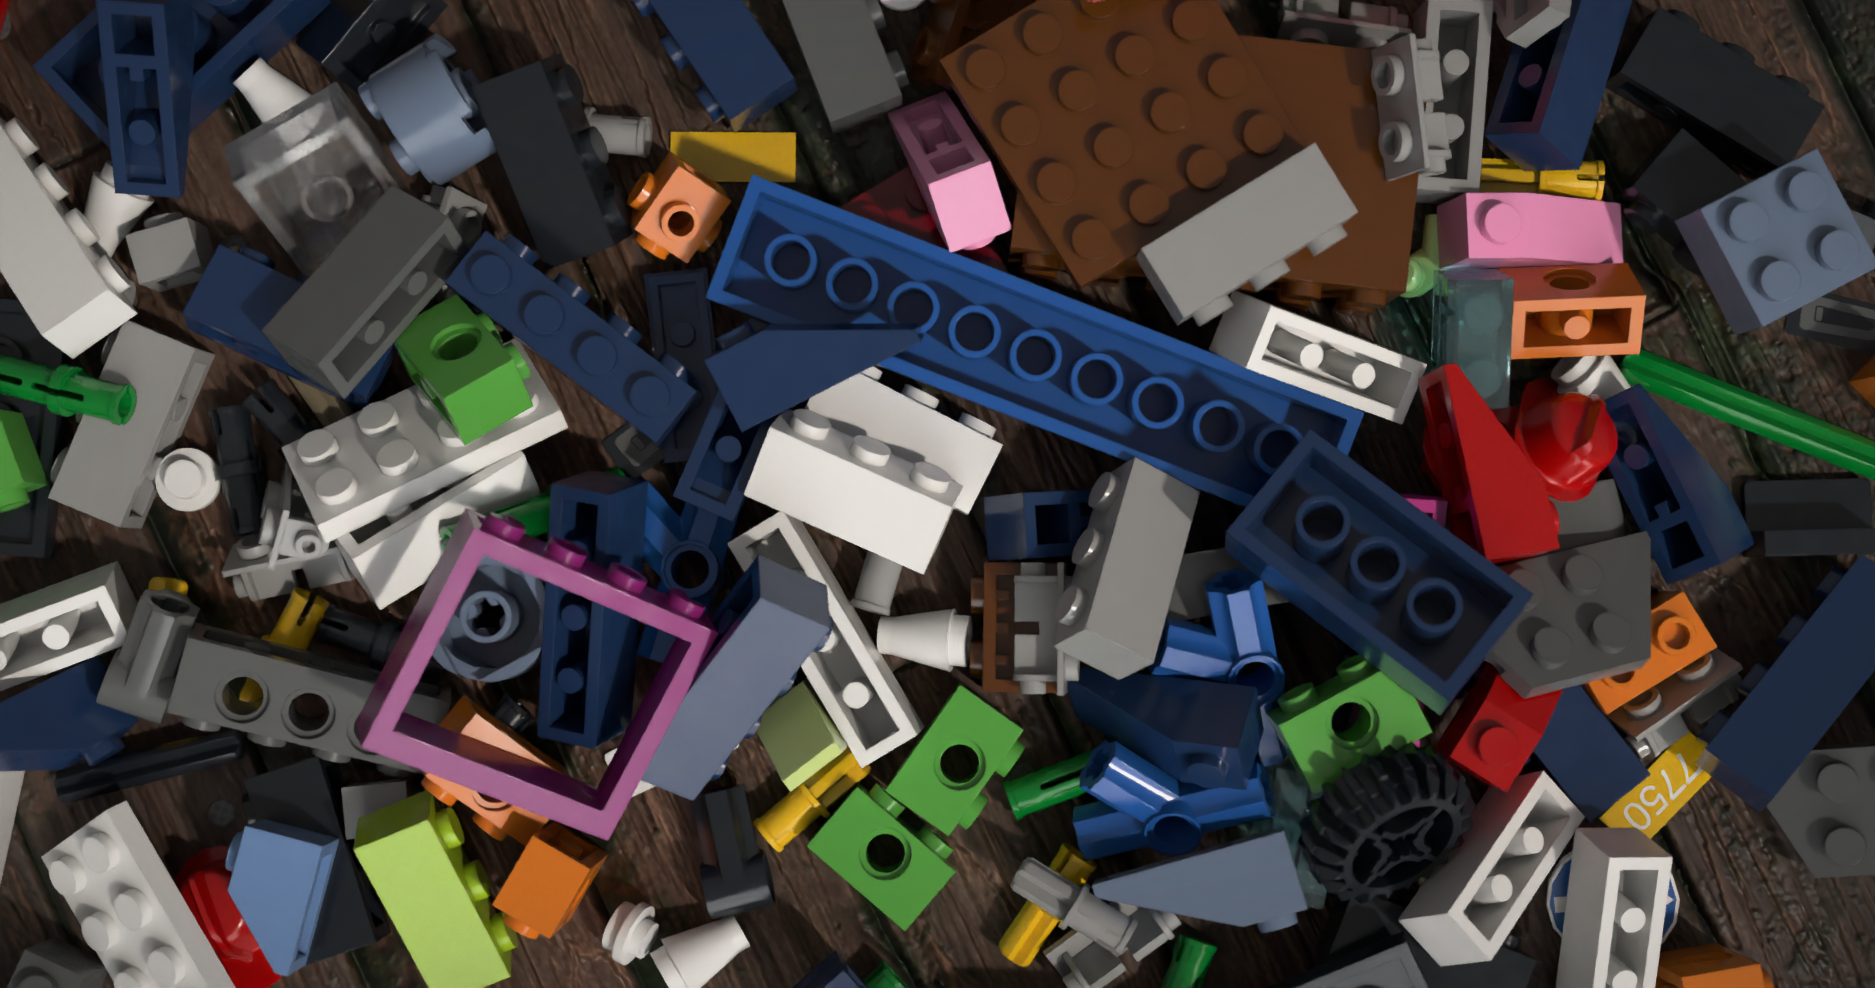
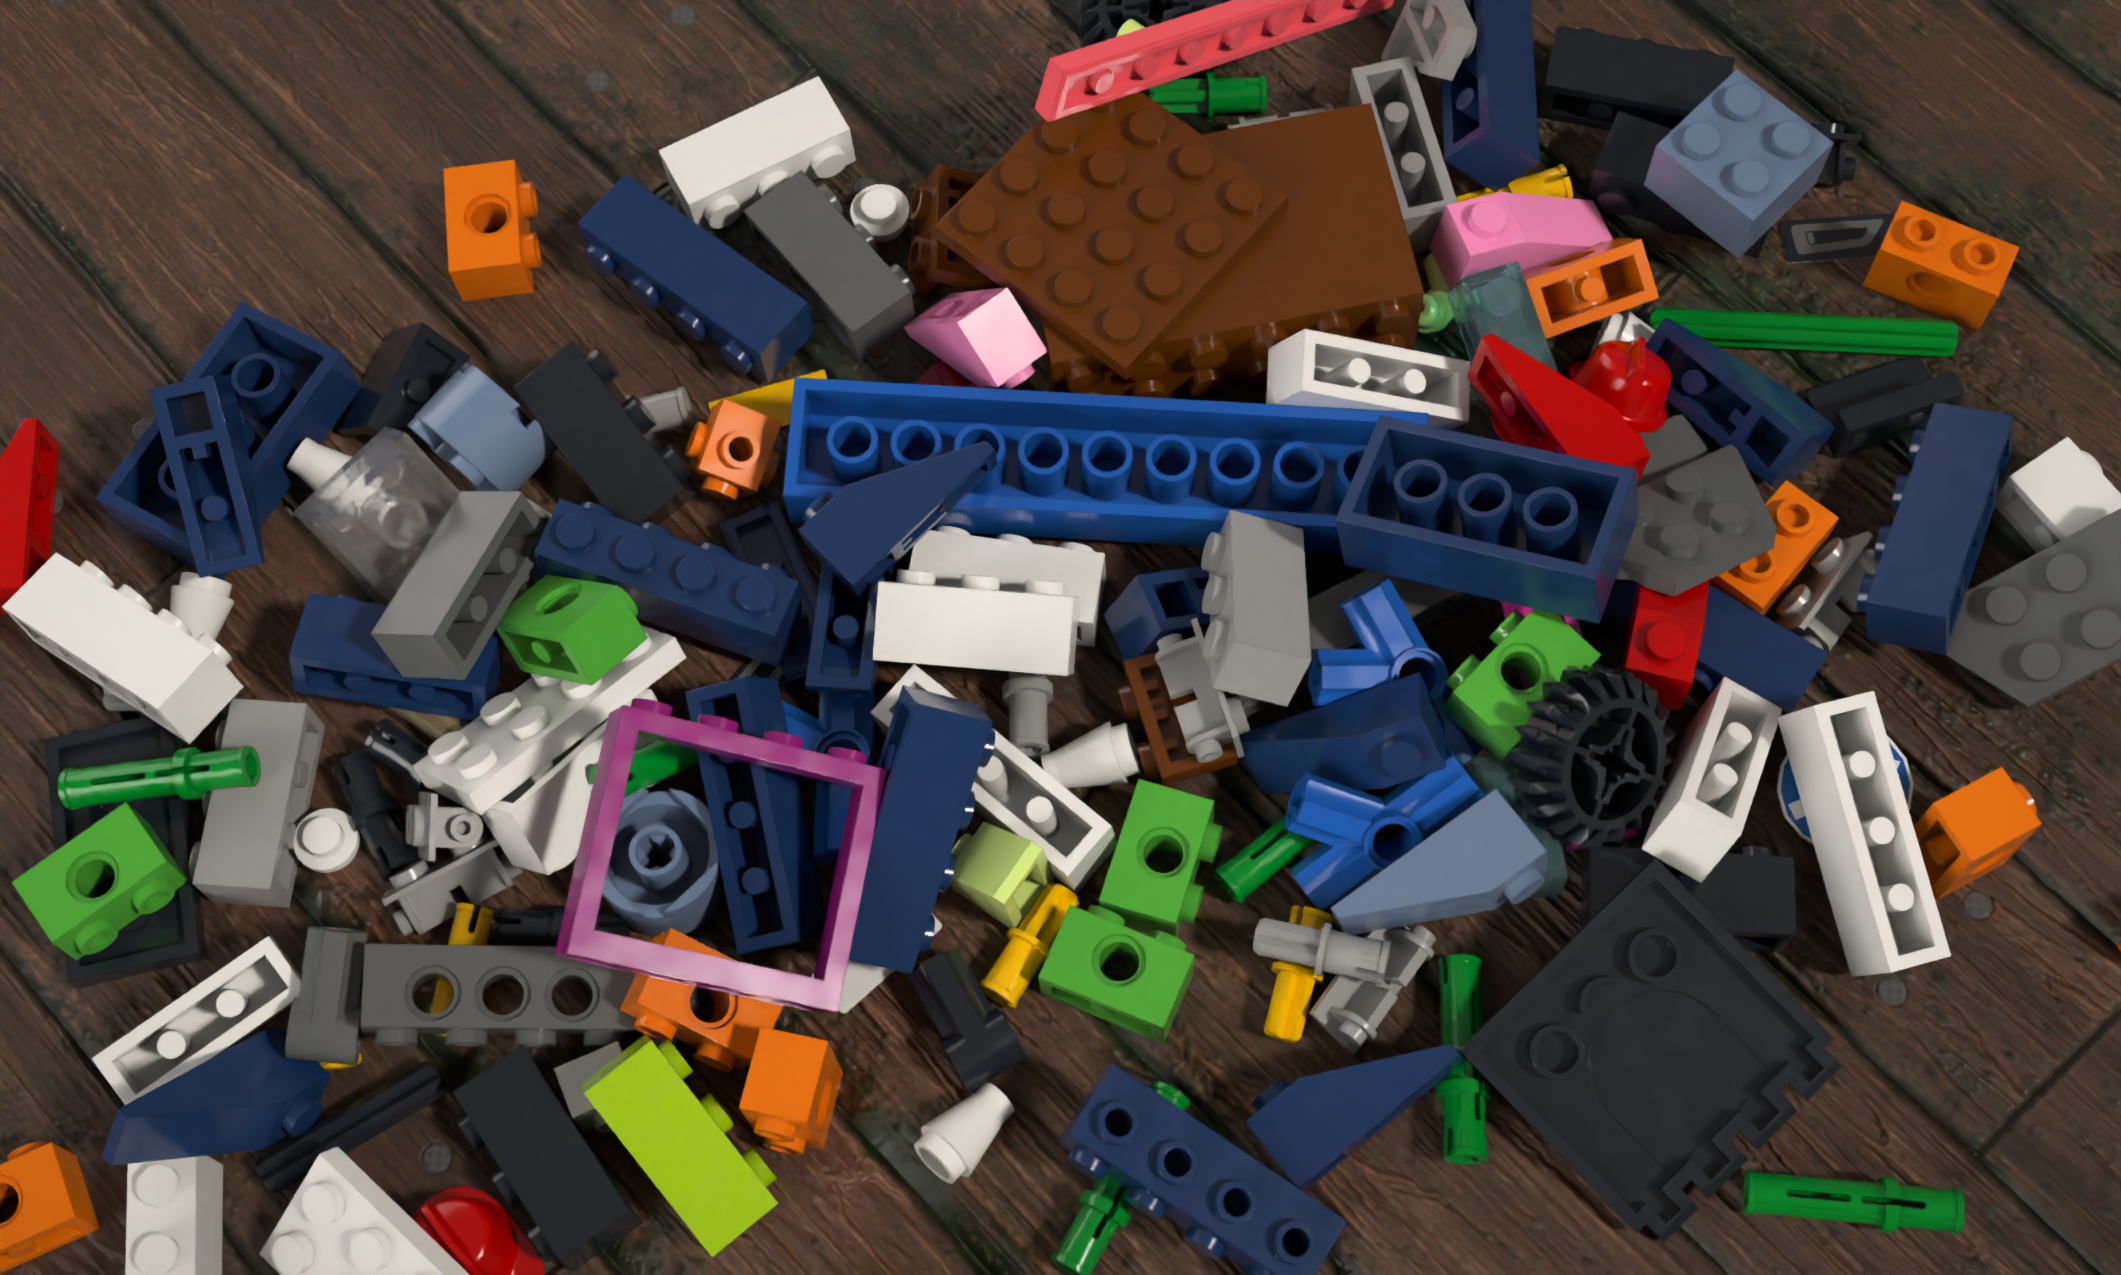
camera: 10 degrees left, 20 degrees down
(170, 251) = (260, 637): light grey plate -> none
(280, 887) = (519, 1168): medium blue slope -> none
(630, 932) = (888, 1132): white plate -> none
(1248, 237) = (1260, 281): light grey brick -> none
(1403, 78) = (1356, 128): light grey hinge -> none
(1664, 792) = (1856, 667): yellow sticker -> none

